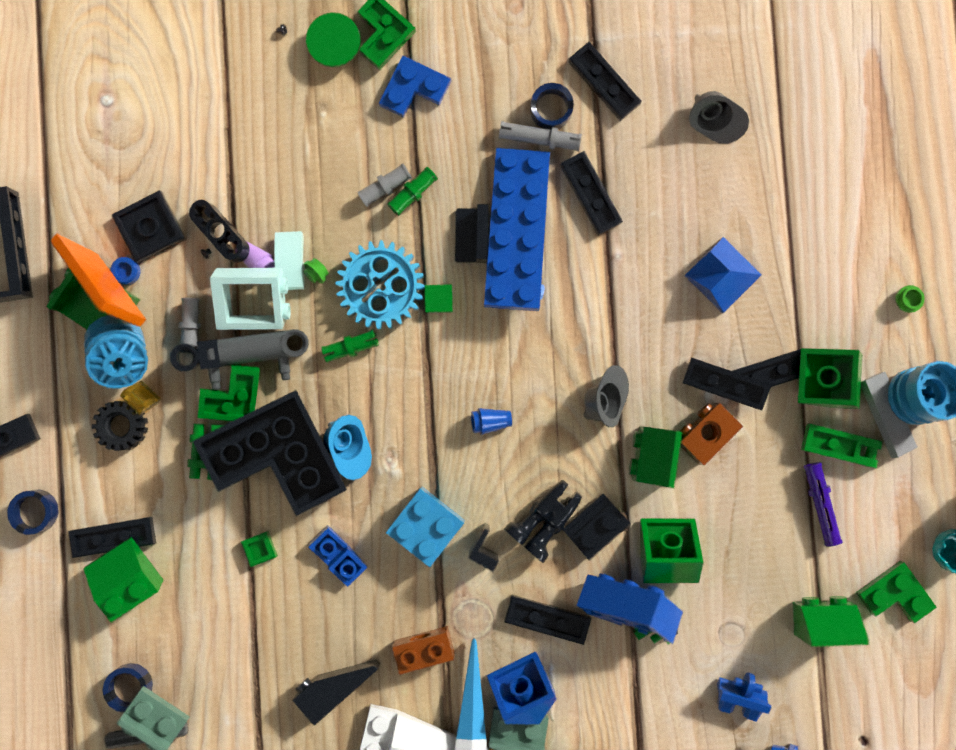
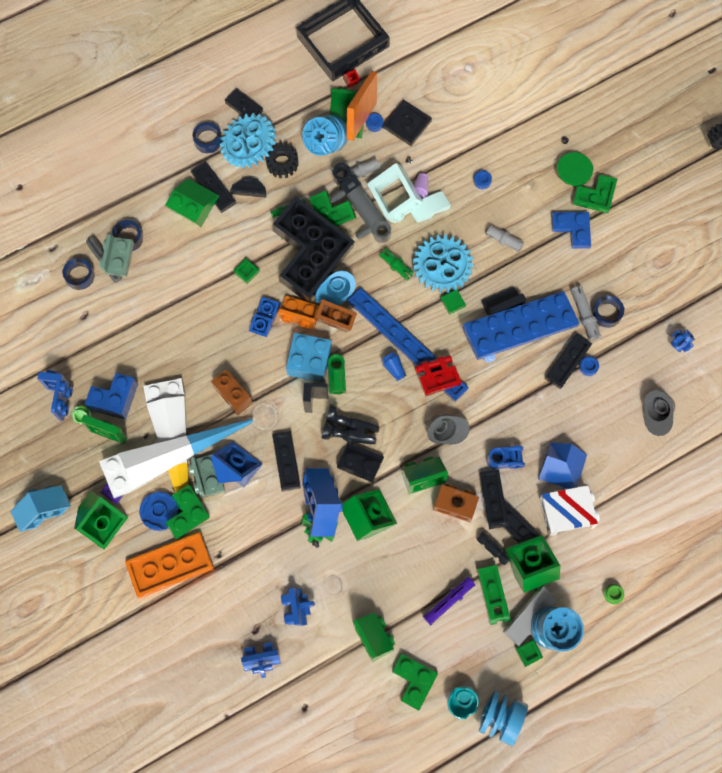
camera: 60 degrees right, 15 degrees down
(34, 269) = (351, 74): none -> red piece
(59, 463) = (248, 140): none -> medium azure gear
(137, 487) = (249, 187): none -> black tile
(140, 397) = (304, 163): clear yellow tile -> none
(208, 228) = (425, 153): black beam -> none
(284, 169) = (482, 179): none -> blue tile
(315, 271) = (431, 223): bright green plate -> none
(329, 689) = (176, 347): black slope -> none
(353, 506) = (298, 312): none -> orange bracket
(386, 467) = (334, 315): none -> dark orange brick
(412, 191) = (510, 255): green pin -> none
(466, 387) = (398, 335): none -> blue tile
(469, 503) = (337, 379): none -> green piece
(541, 372) = (439, 380): none -> red plate
(604, 81) = (642, 336): black tile -> none
(610, 171) = (589, 366): none -> blue tile
(638, 34) = (682, 340): none -> blue gear
(683, 335) = (510, 458): none -> blue piece
(784, 415) = (494, 548): none -> black axle
(787, 298) = (569, 510): none -> panel
(929, 438) = (529, 653): none -> green tile

